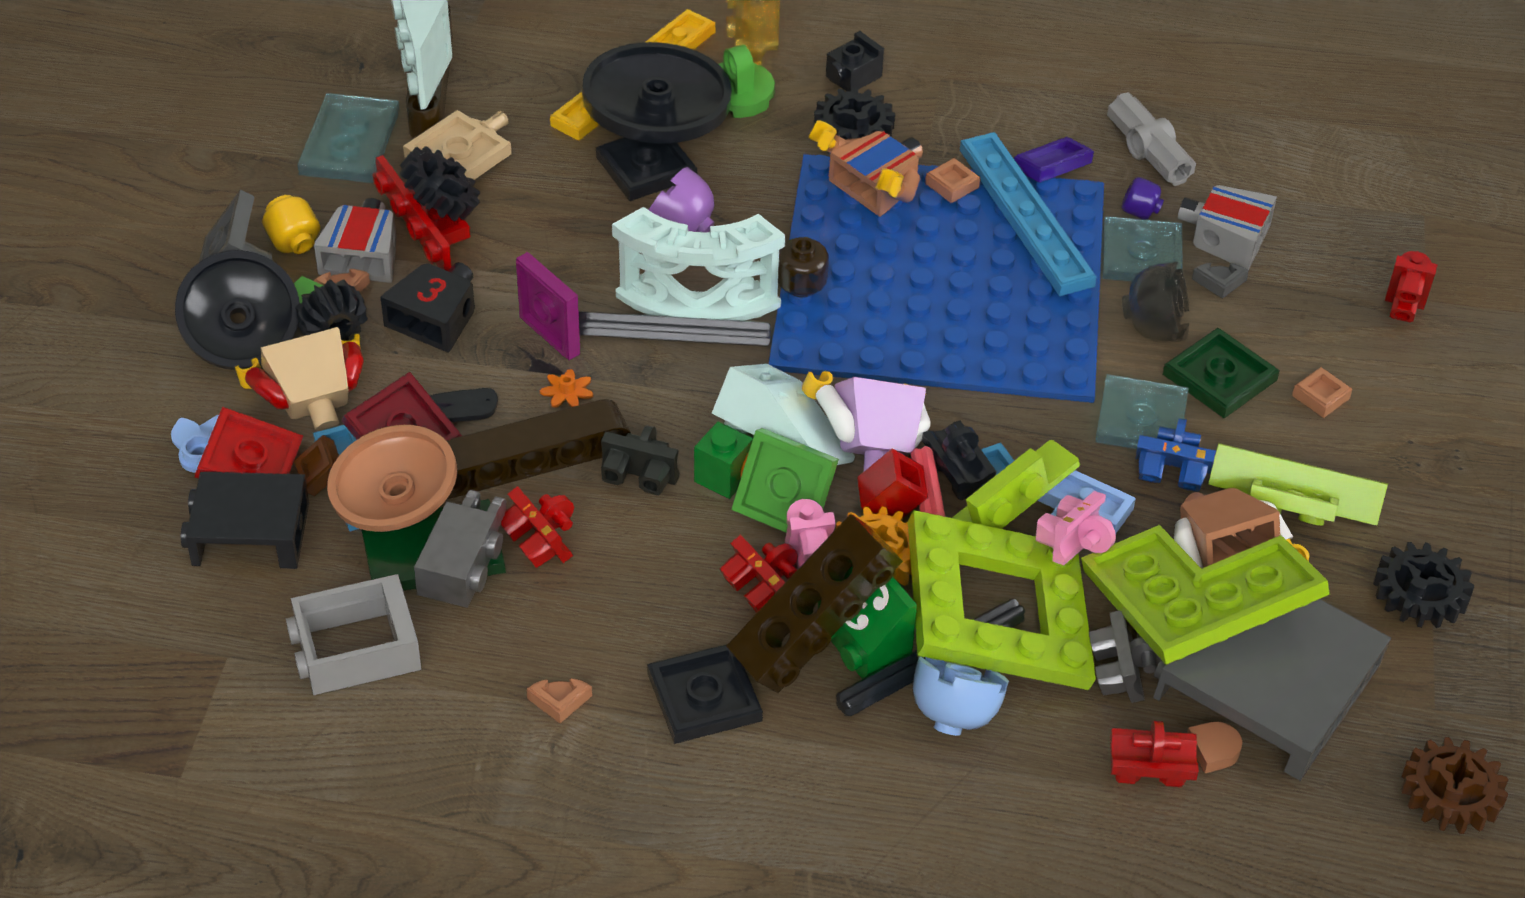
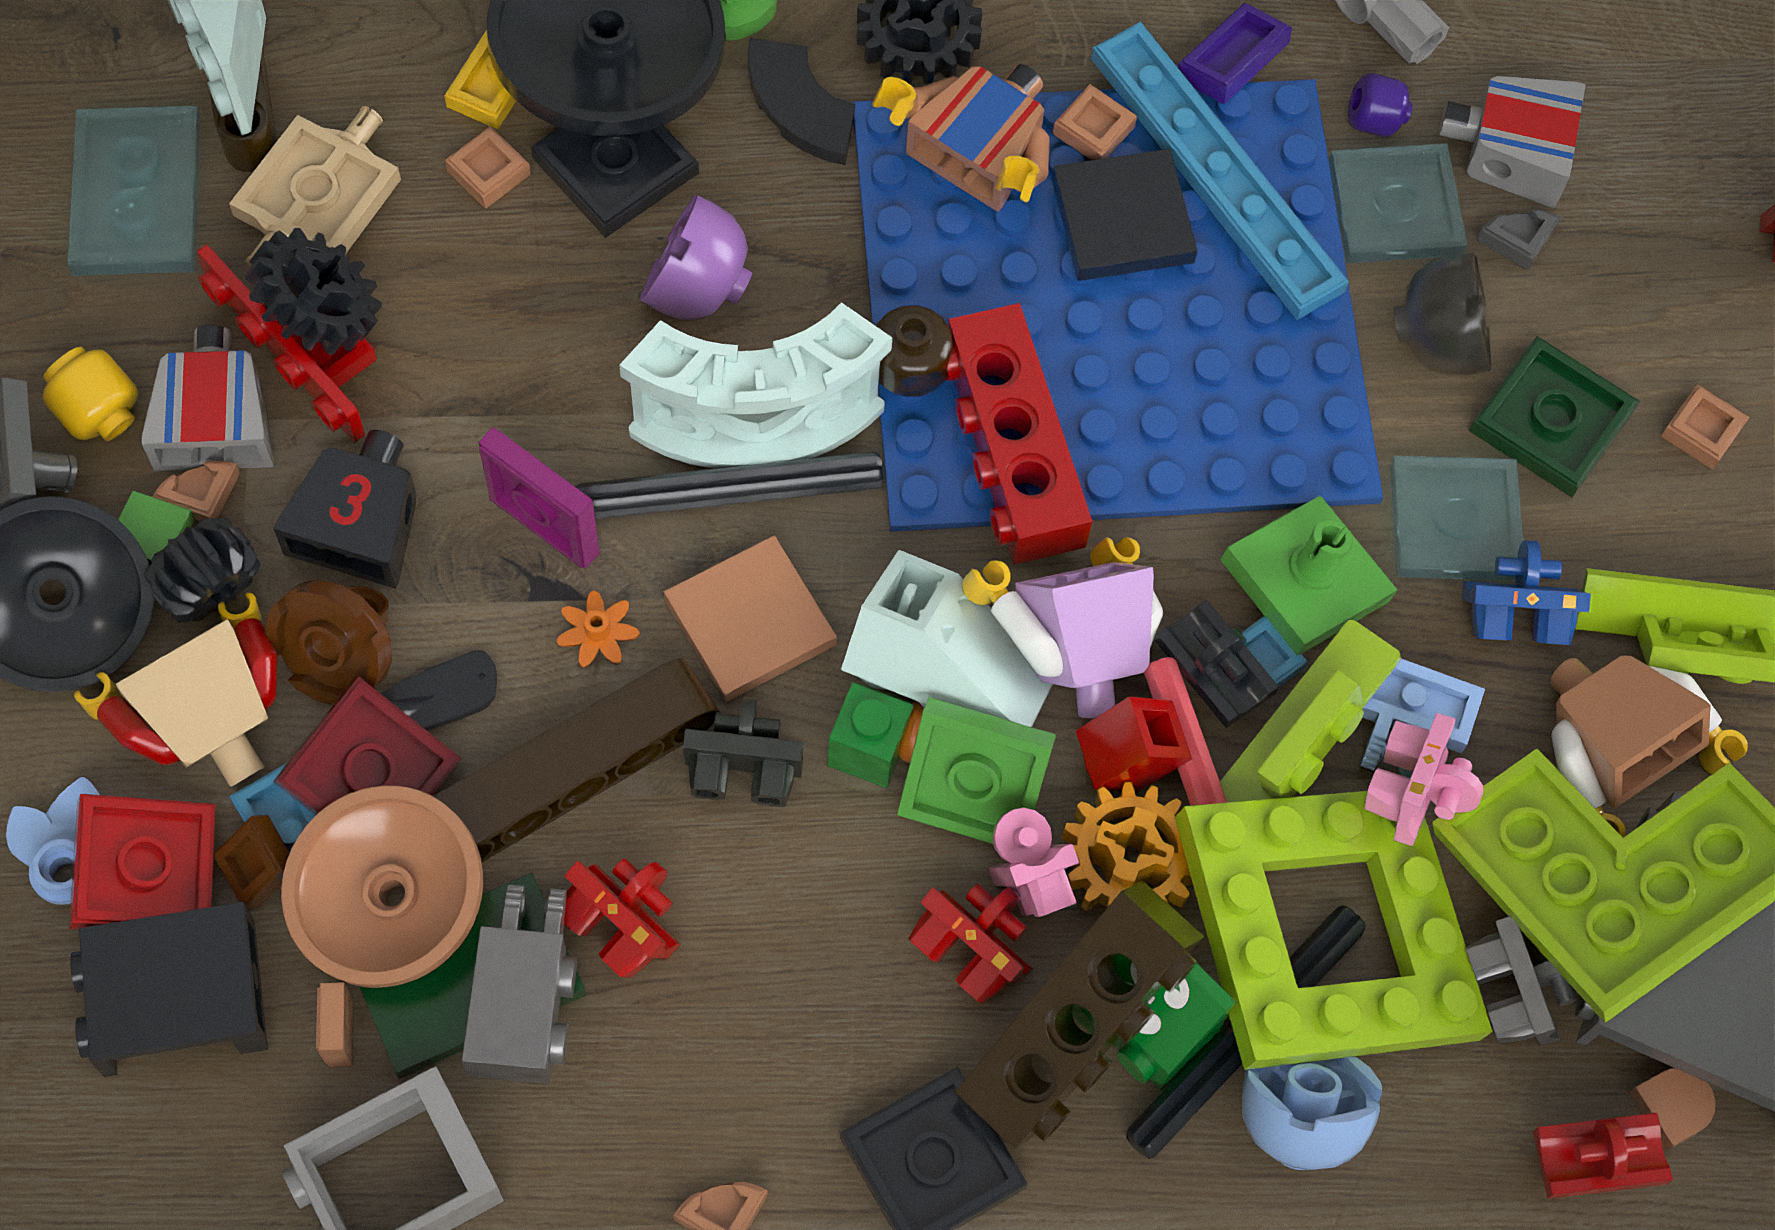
camera: 15 degrees left, 20 degrees up
(342, 553) = (335, 1024): none -> nougat tile
(396, 348) = (331, 637): none -> reddish brown tile
(566, 155) = (487, 167): none -> nougat tile
(665, 395) = (750, 618): none -> nougat tile
(767, 149) = (795, 101): none -> black tile
(857, 315) = (1031, 525): none -> red brick
(959, 226) = (1124, 214): none -> black tile
(1032, 419) = (1308, 575): none -> bright green tile

